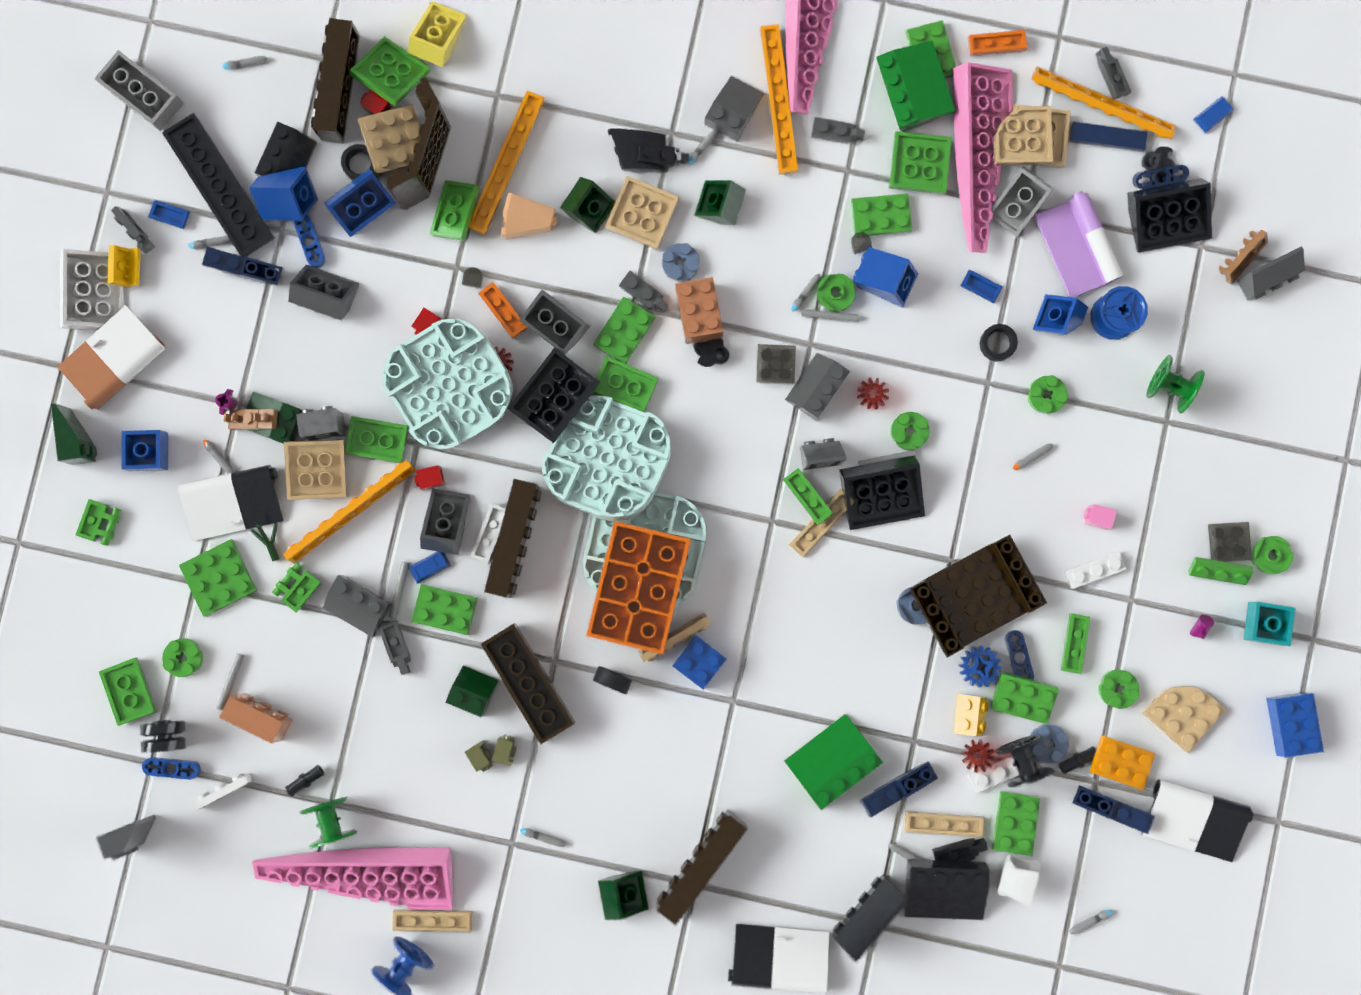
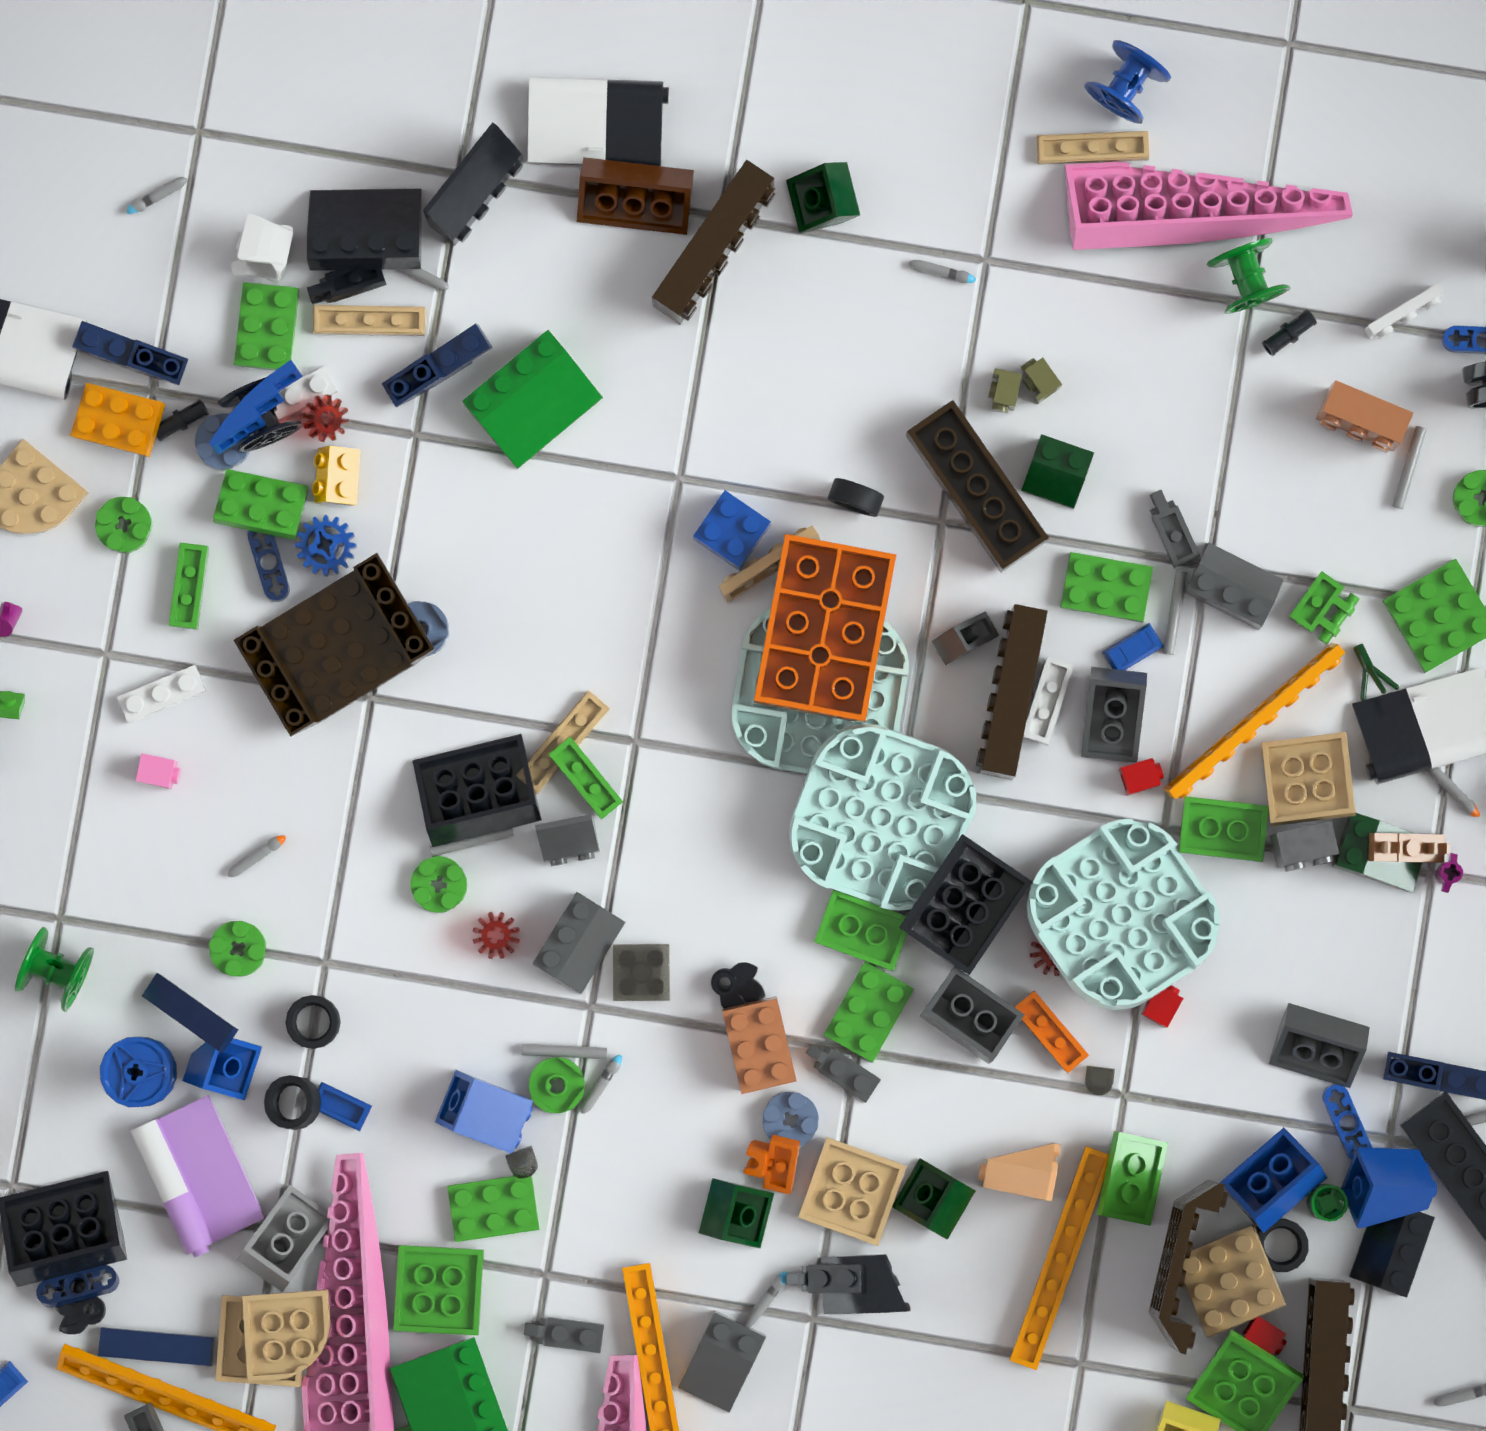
camera: 175 degrees right, 0 degrees up
(323, 184) = (1327, 1202): none -> green wheel
(543, 579) = (965, 638): none -> dark grey slope
(692, 233) = (774, 1161): none -> orange plate
(755, 903) = (634, 195): none -> reddish brown slope
(1027, 287) = (272, 1096): none -> black tyre
(1036, 759) = (246, 416): none -> blue slope
(1083, 350) = (190, 1012): none -> dark blue tile

